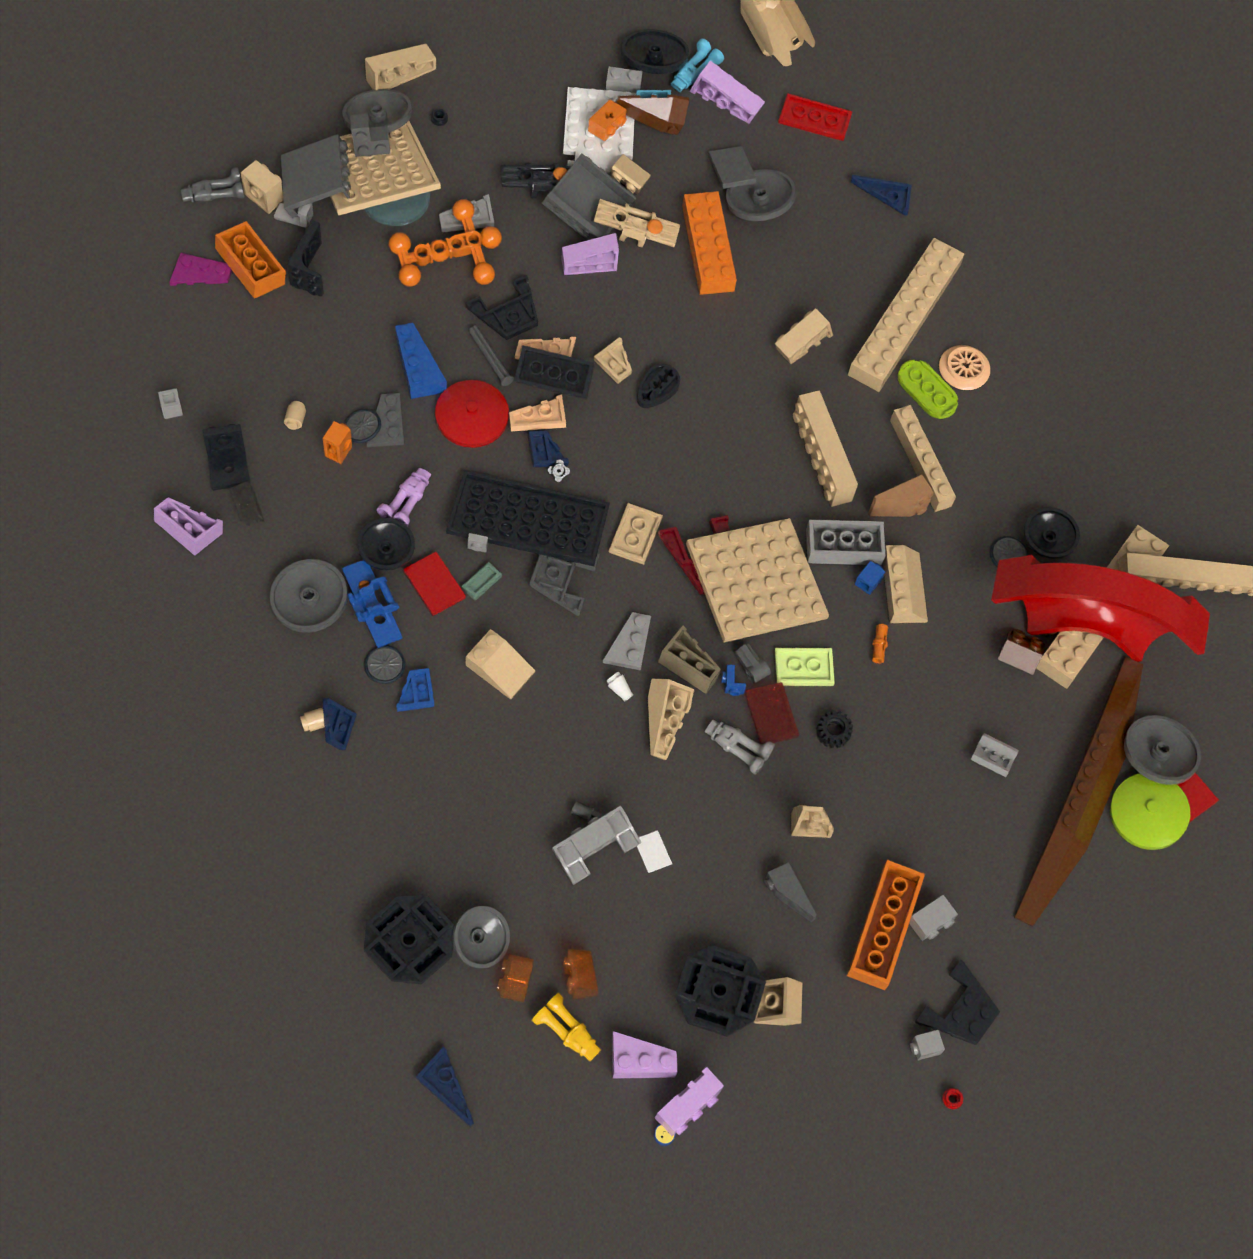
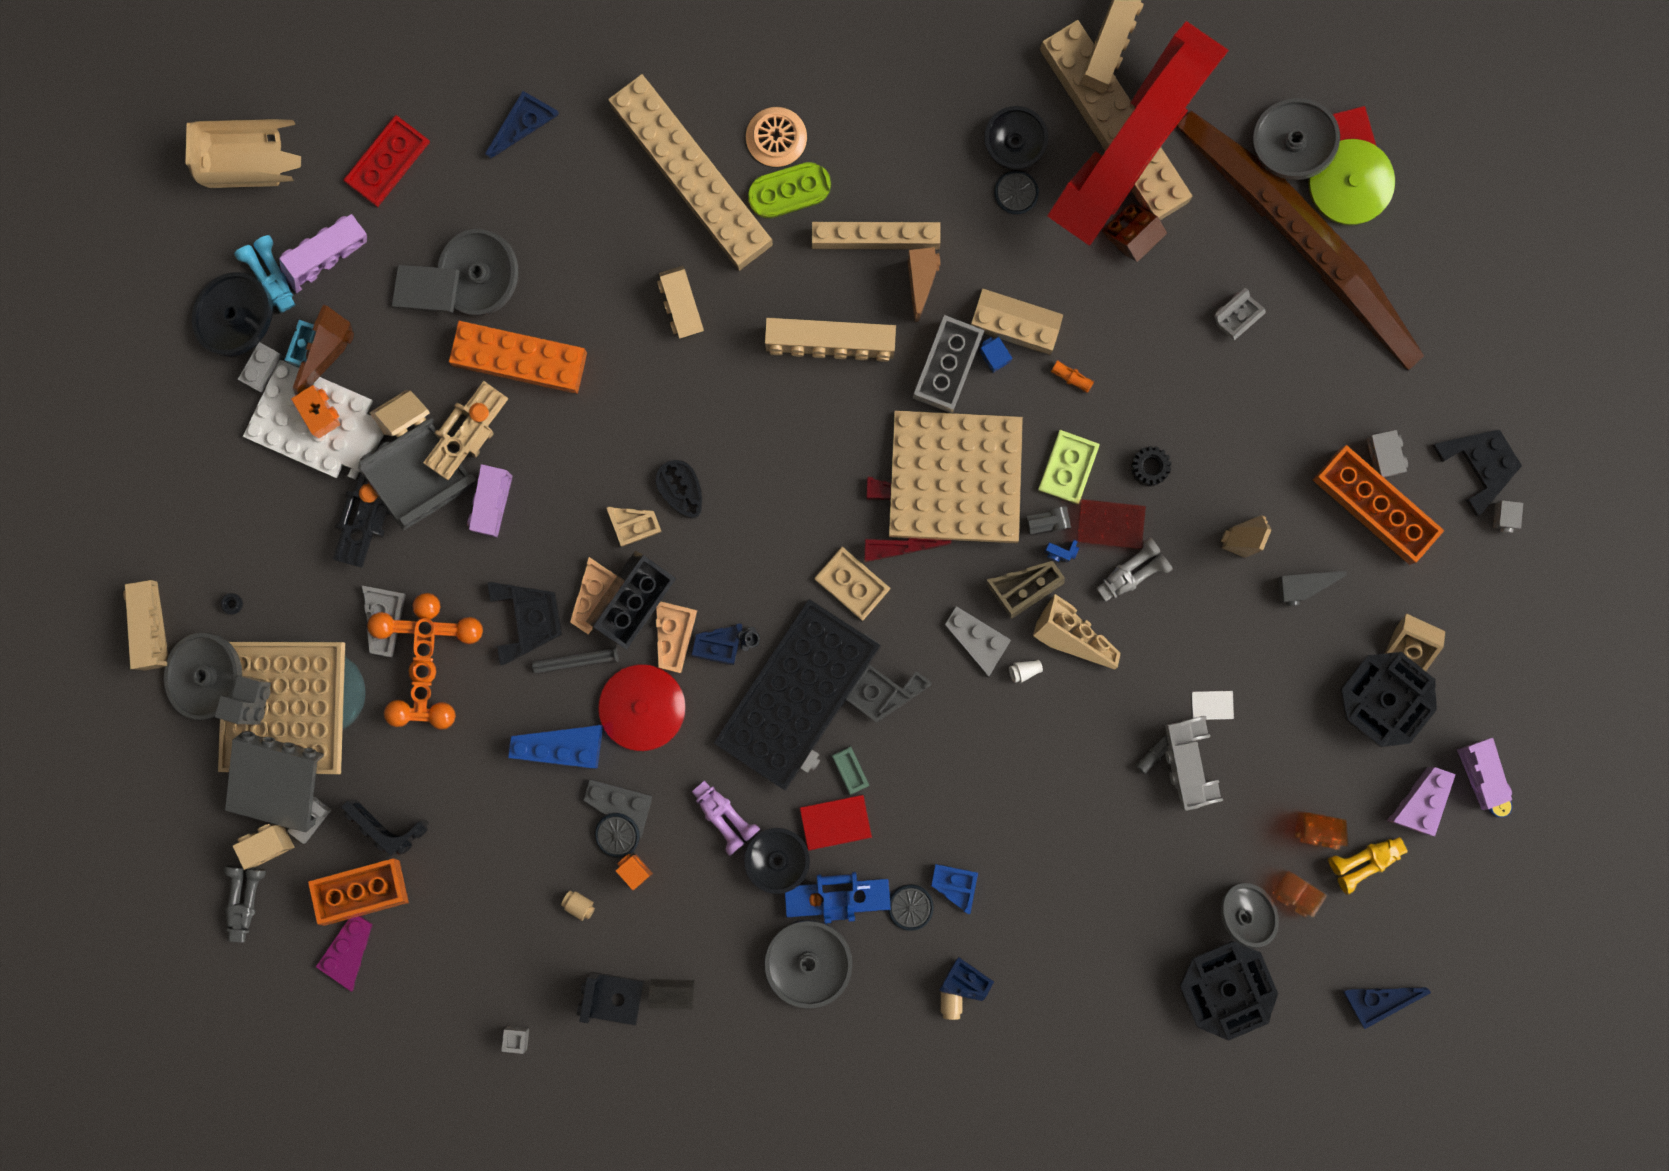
camera: 65 degrees left, 20 degrees up
(187, 526) = (680, 1066): lavender wedge -> none
(499, 664) = (957, 787): tan slope -> none
(958, 1096) = (1571, 513): red plate -> none

